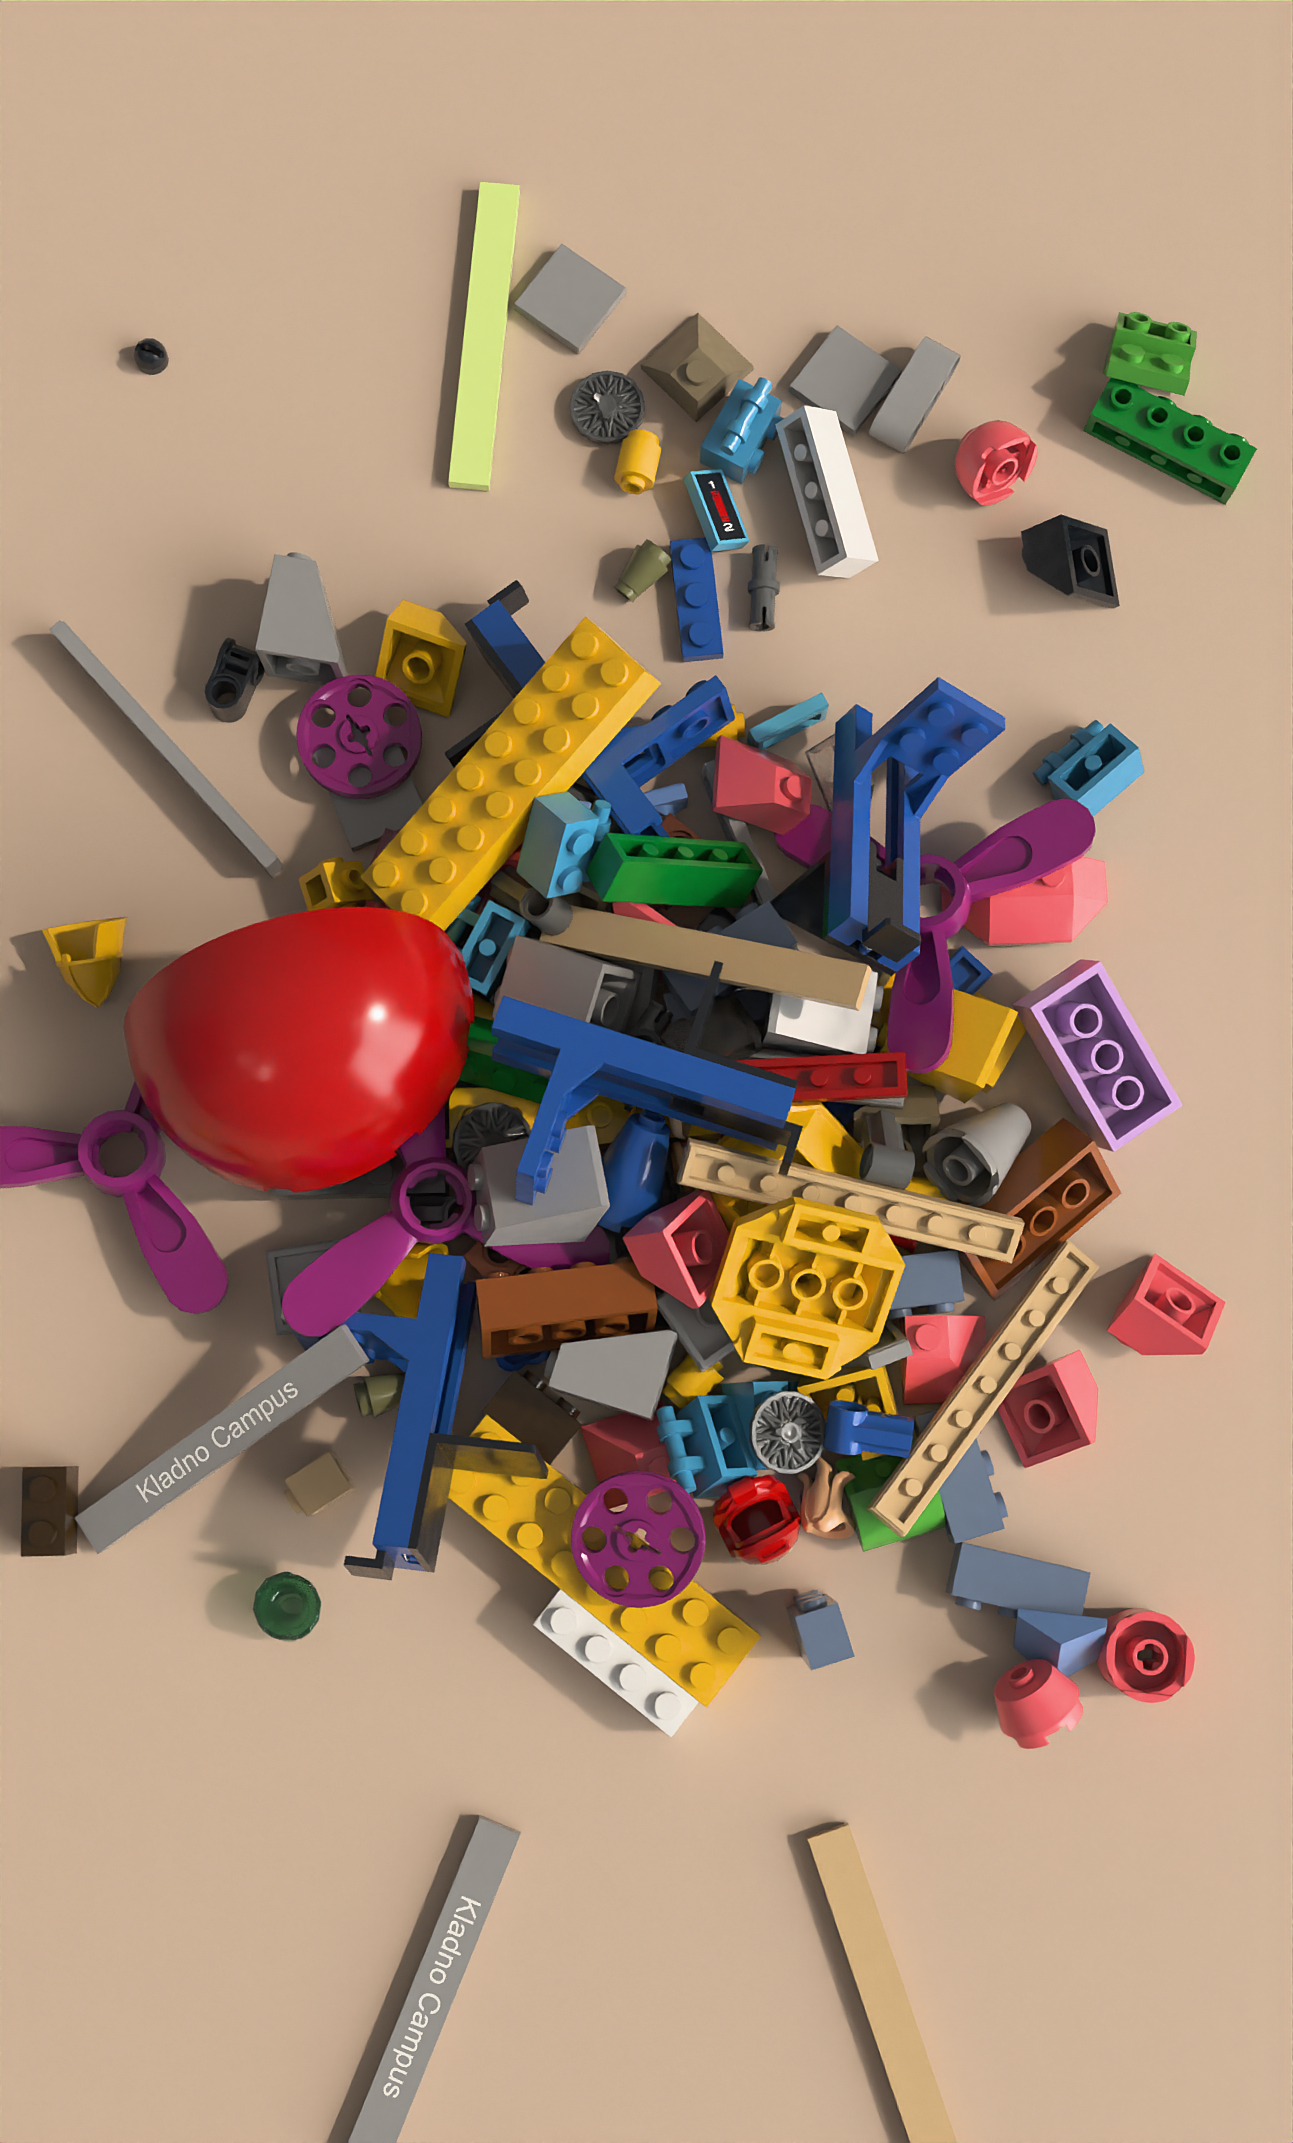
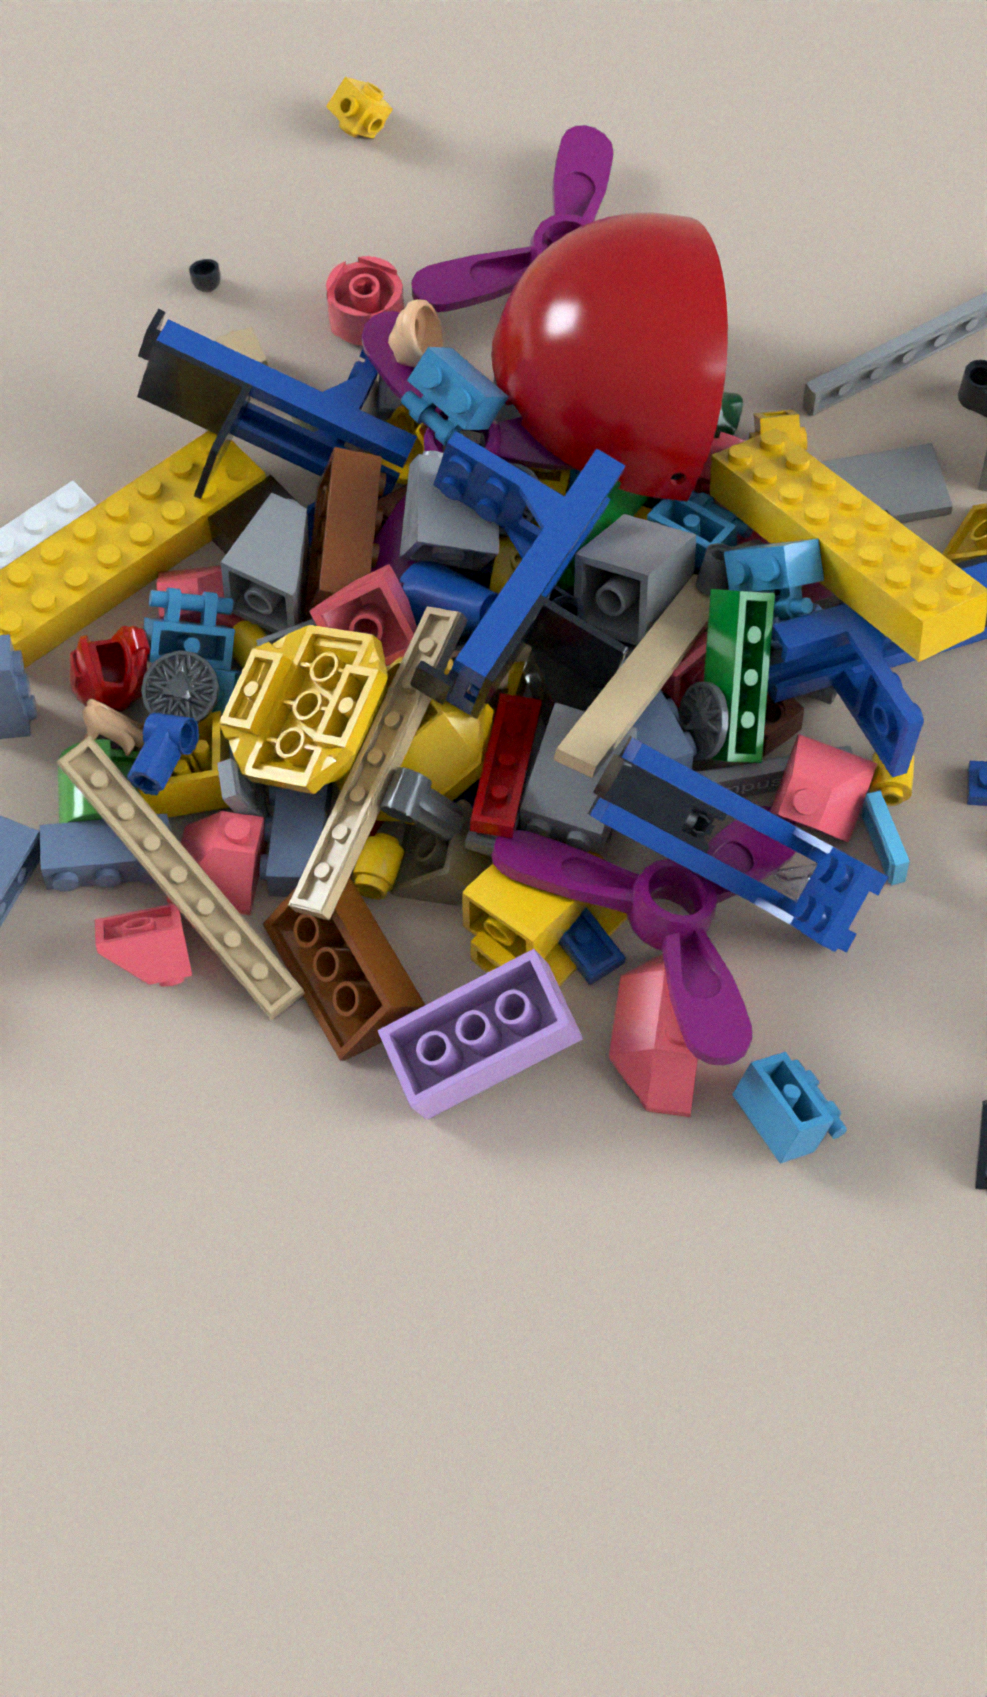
camera: 105 degrees right, 20 degrees down
(49, 1511) = (274, 175): dark brown brick -> none
(89, 956) = (752, 254): yellow helmet -> none
(197, 1356) = (359, 292): none -> coral brick
(198, 1562) = (205, 275): none -> black hinge
(222, 1438) = (299, 284): light grey tile -> none
(287, 1607) = (138, 313): clear green hair -> none
(330, 1266) = (414, 332): none -> light nougat hat
(365, 718) = (929, 464): magenta wedge -> none
(407, 1208) = (456, 389): none -> dark azure brick
(618, 1548) = (119, 553): magenta wedge -> none
(668, 799) = (820, 717): medium blue tile -> none
(722, 897) = (705, 717): none -> dark grey wheel
(976, 1153) = (410, 916): light grey cone -> none
(1166, 1312) = (209, 1067): coral slope -> none

